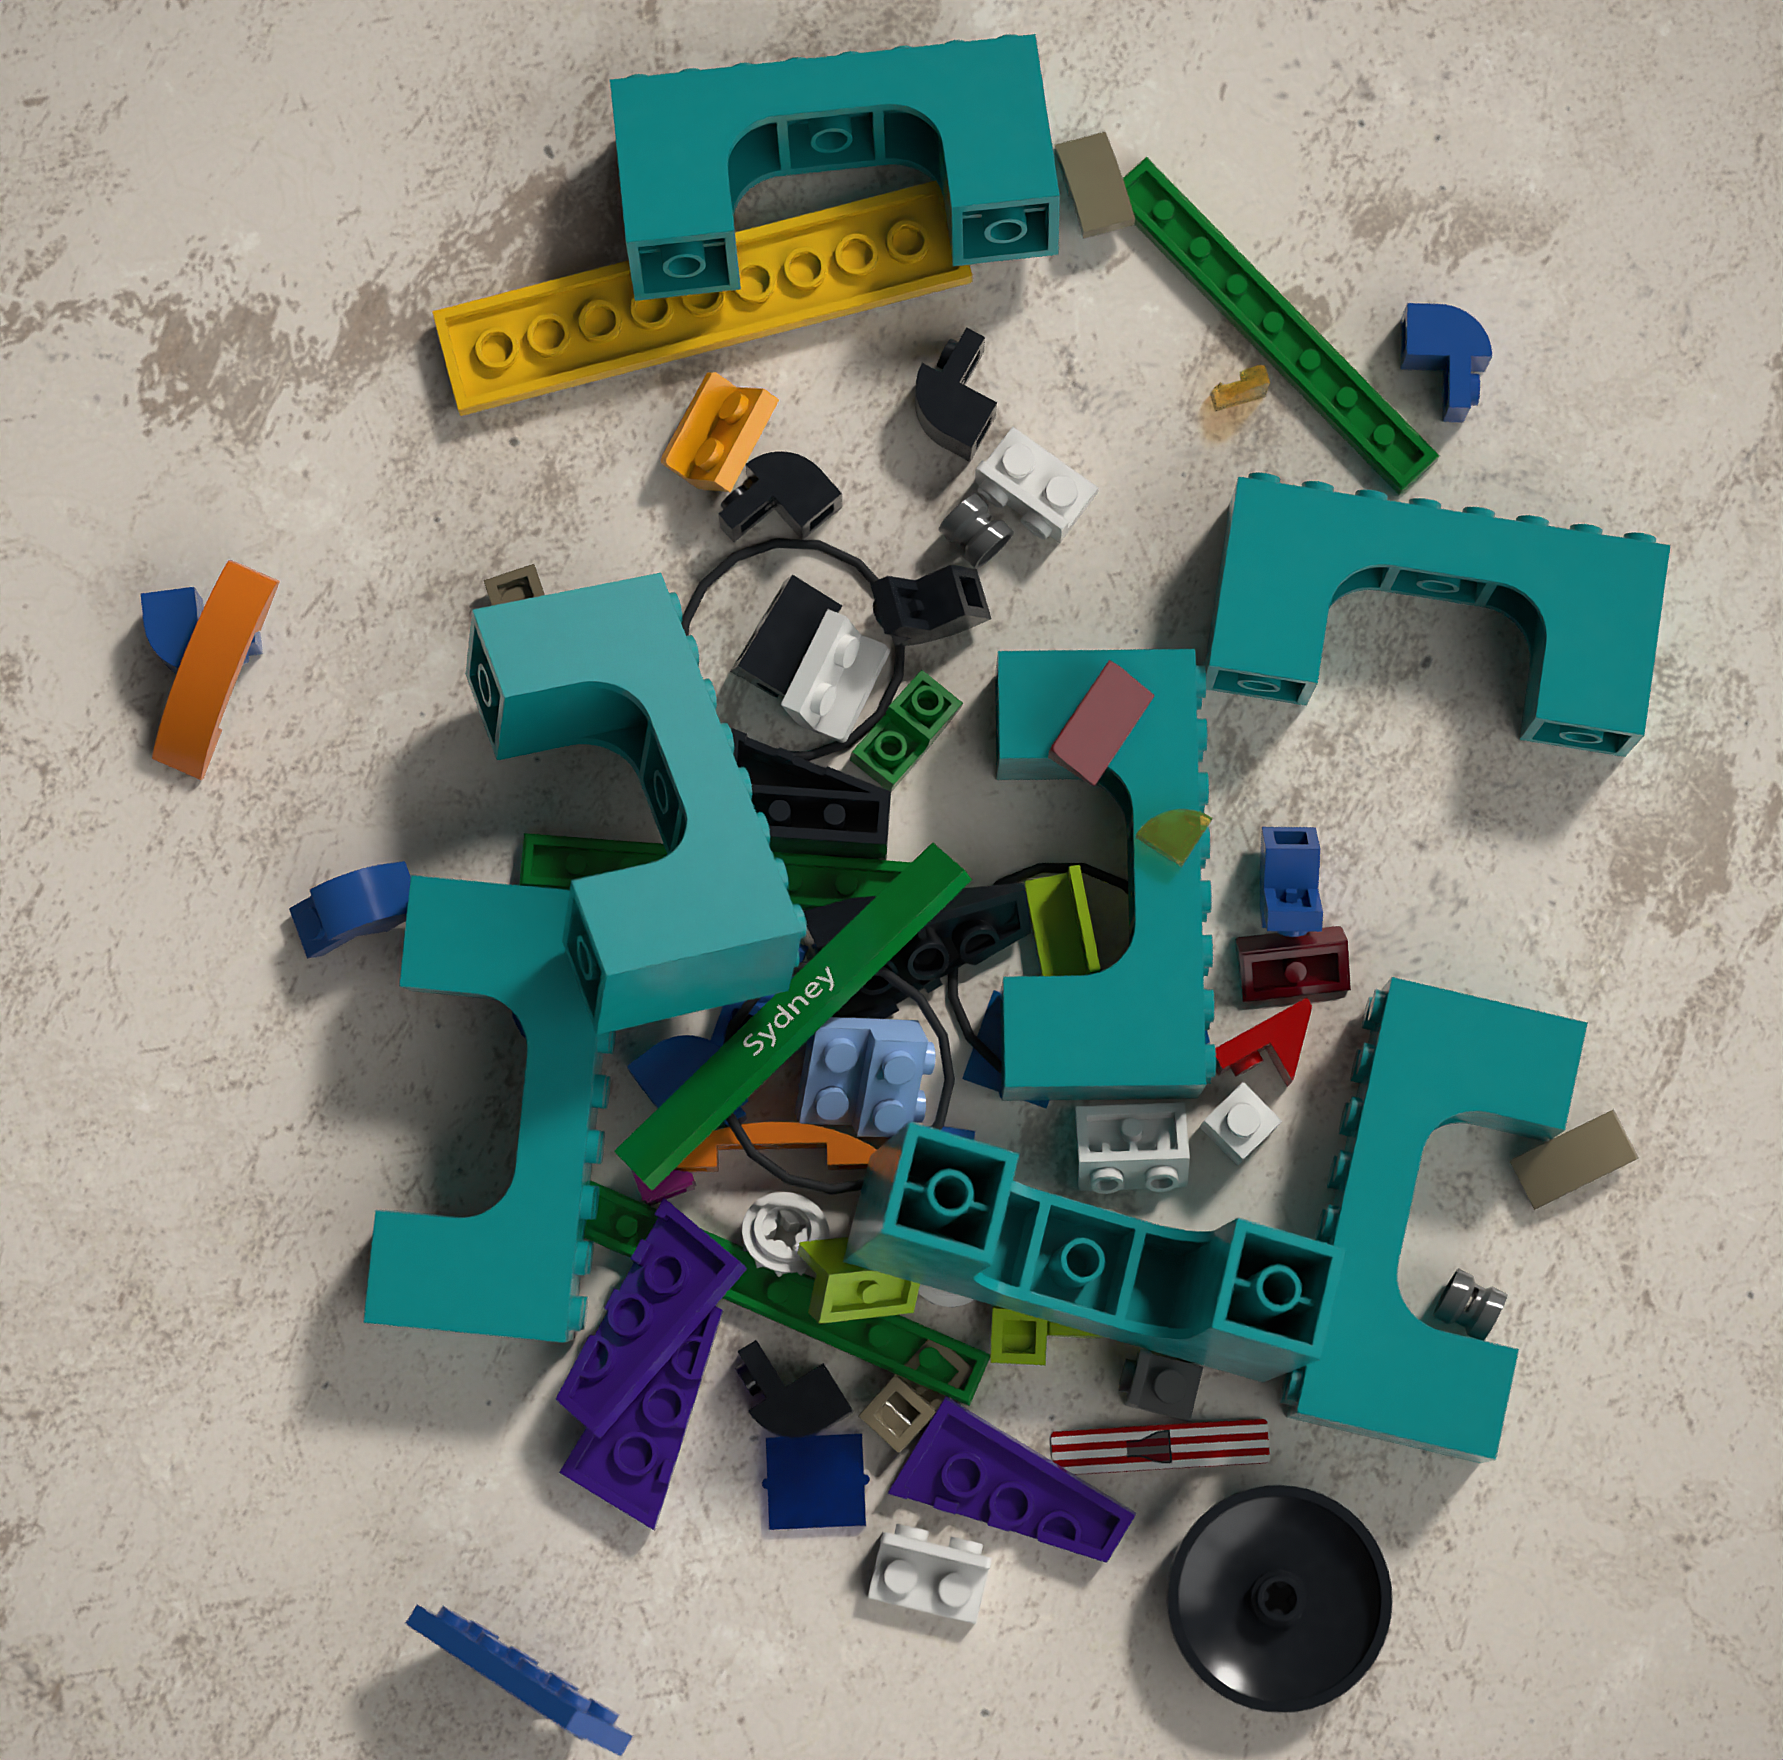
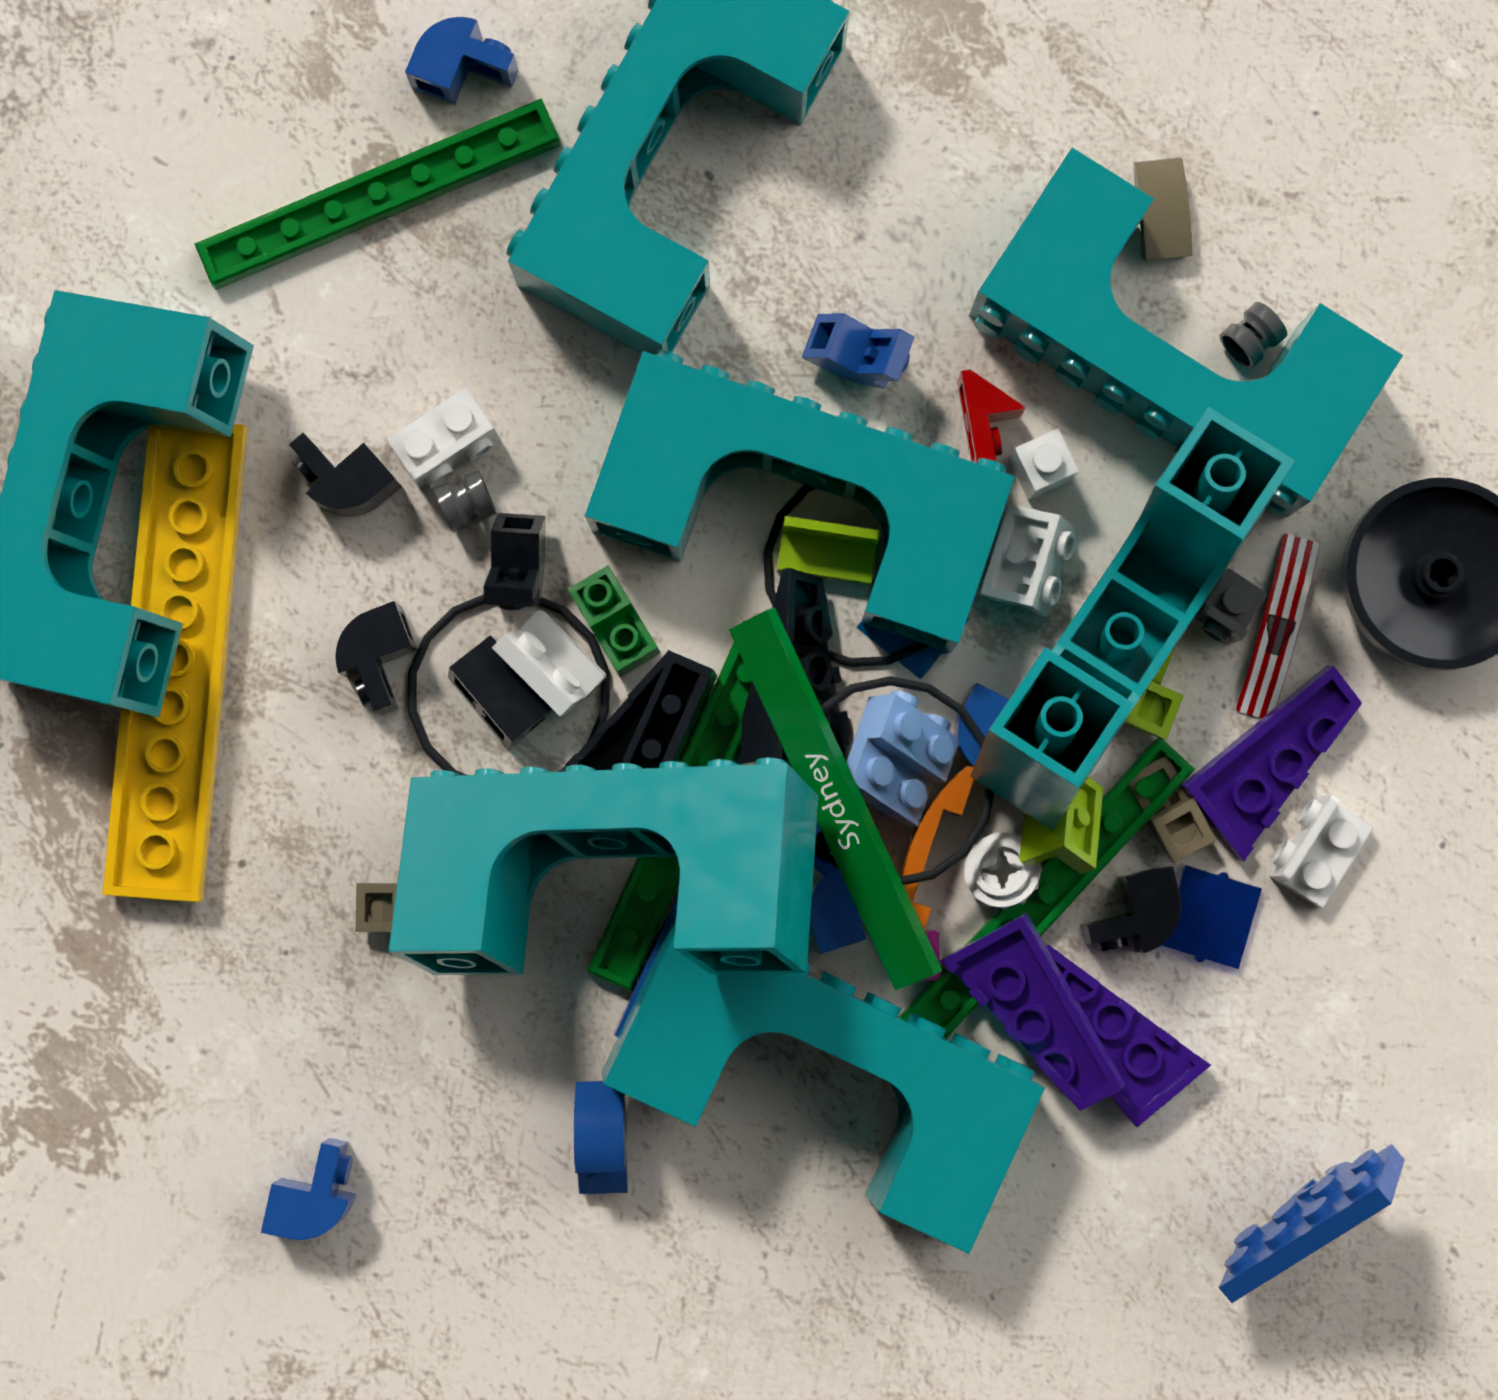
camera: 70 degrees left, 5 degrees up
(211, 668) = (348, 1191): orange slope -> none
(718, 433) = (302, 686): light orange bracket -> none
(1095, 184) = (204, 292): dark tan slope -> none
(1100, 724) = (680, 451): dark red slope -> none
(1174, 833) = (796, 423): clear yellow tile -> none
(1252, 386) = (425, 228): clear yellow tile -> none
(1293, 966) = (925, 381): dark red slope -> none

